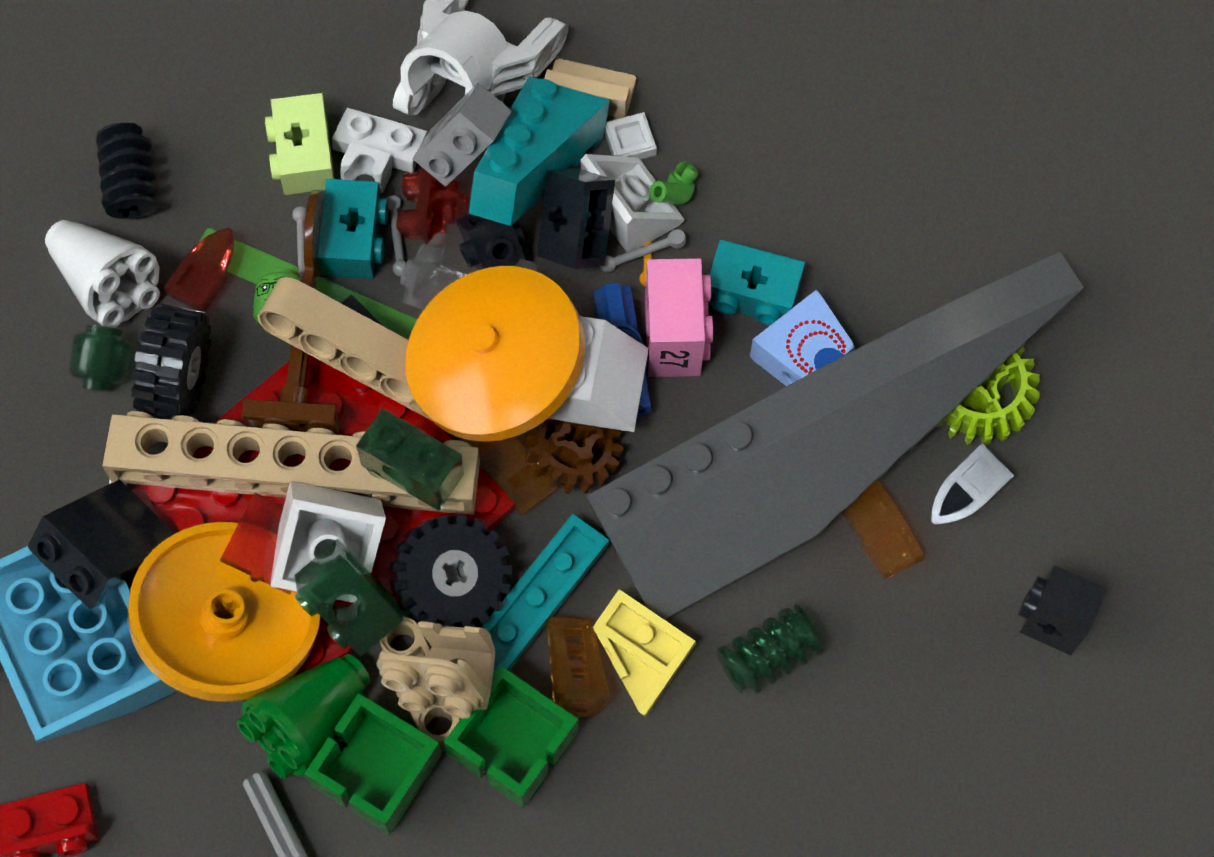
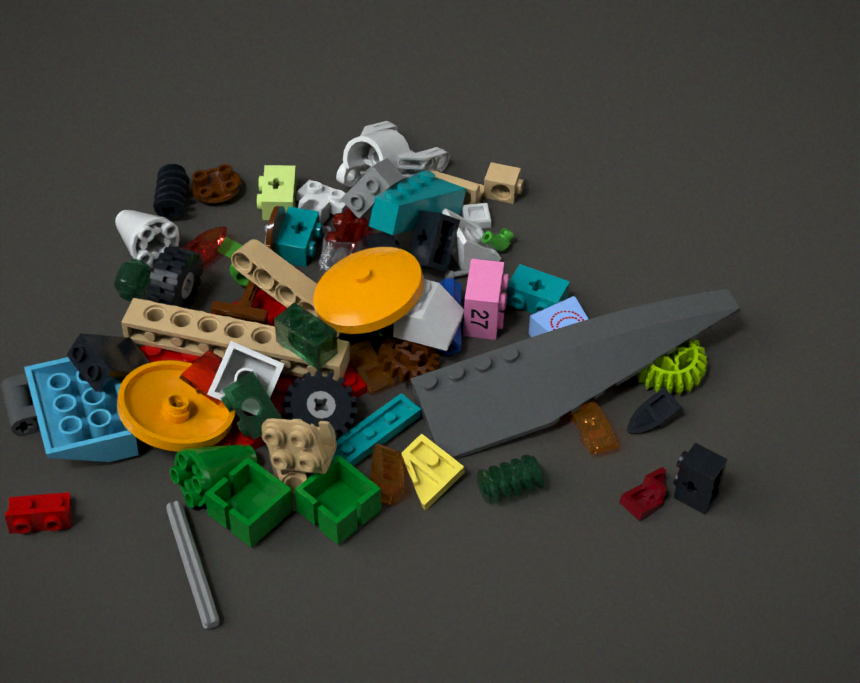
camera: 10 degrees right, 20 degrees down
(195, 140) = (215, 184): none -> reddish brown dish
(664, 70) = (503, 183): none -> tan brick
(979, 640) = (647, 497): none -> dark red slope

